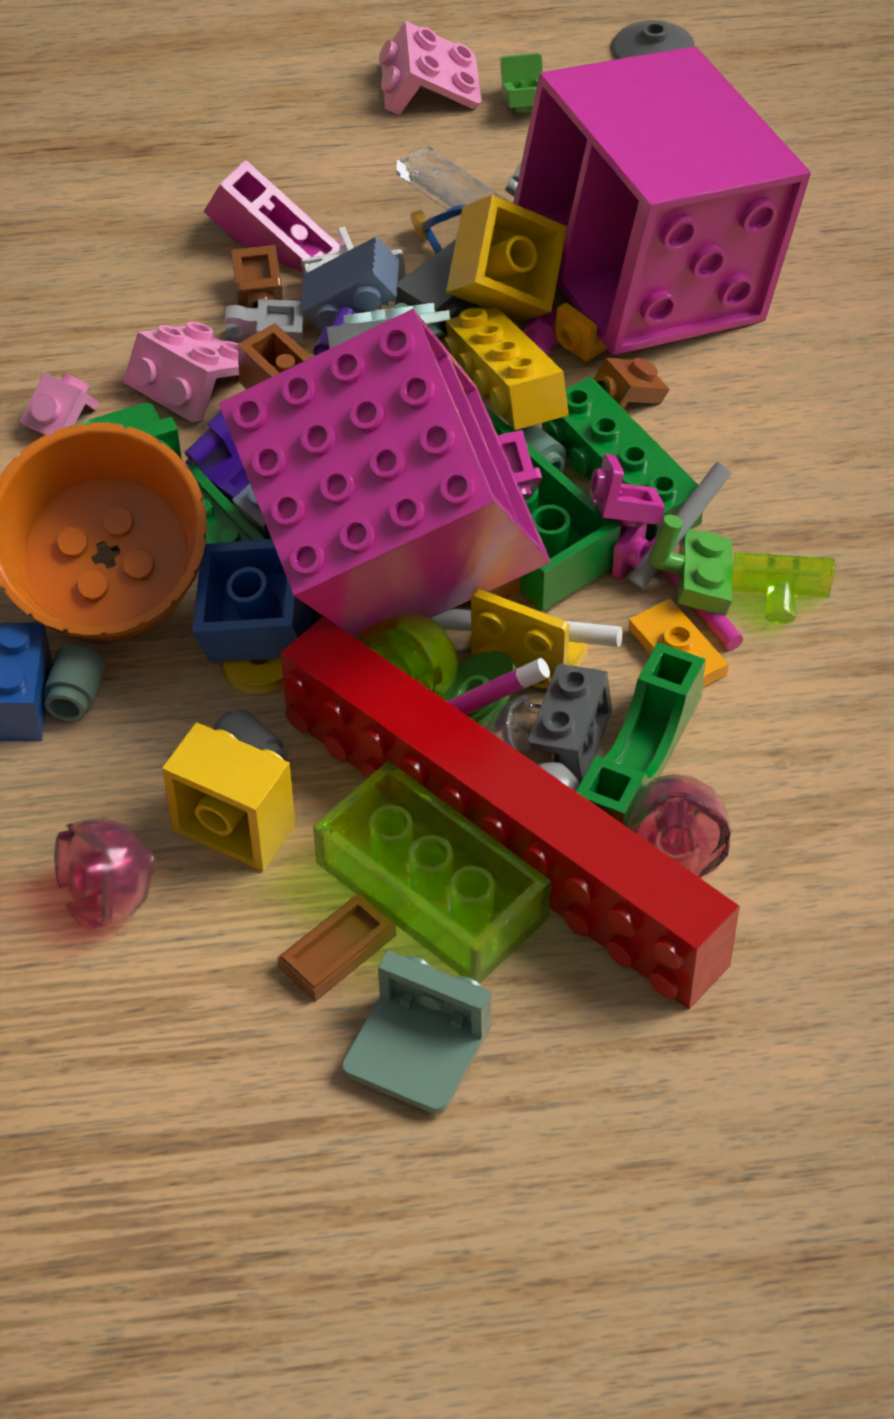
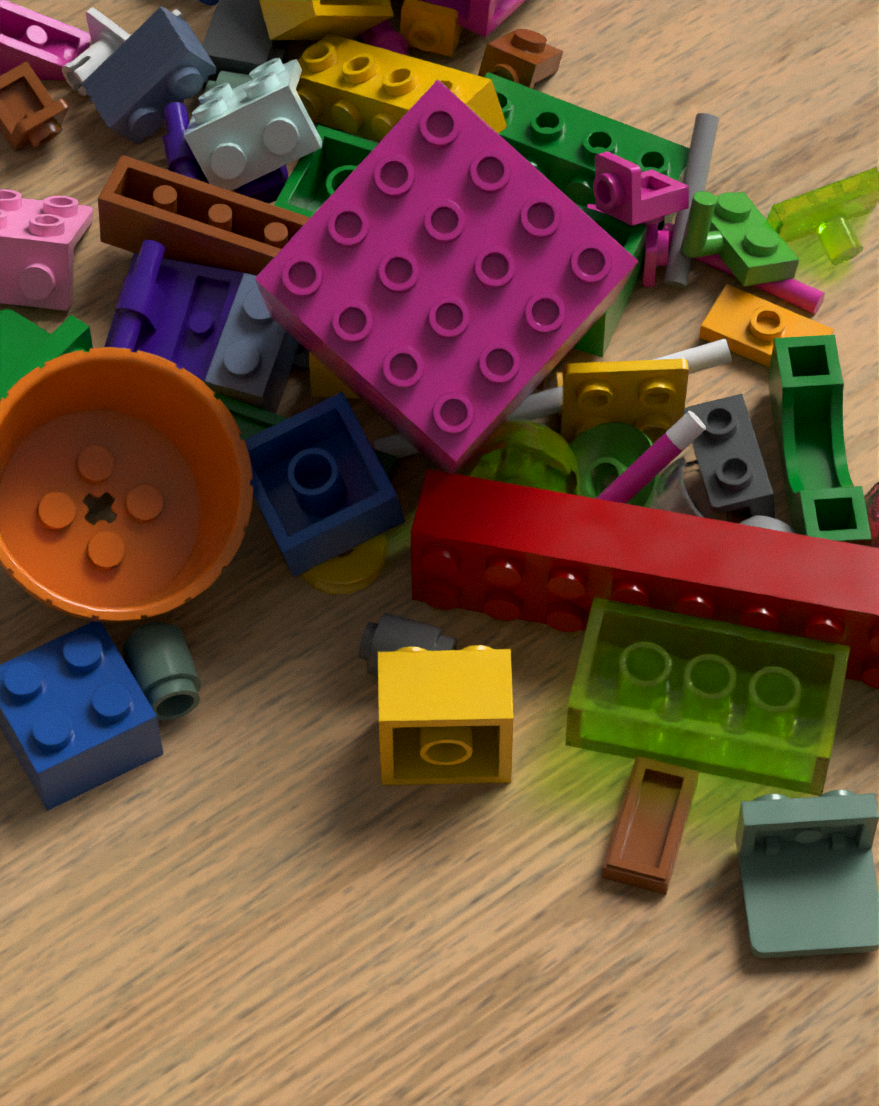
camera: 30 degrees left, 5 degrees up
(105, 871) = (360, 869): clear pink cylinder -> none
(245, 322) = (76, 151): light grey plate -> none

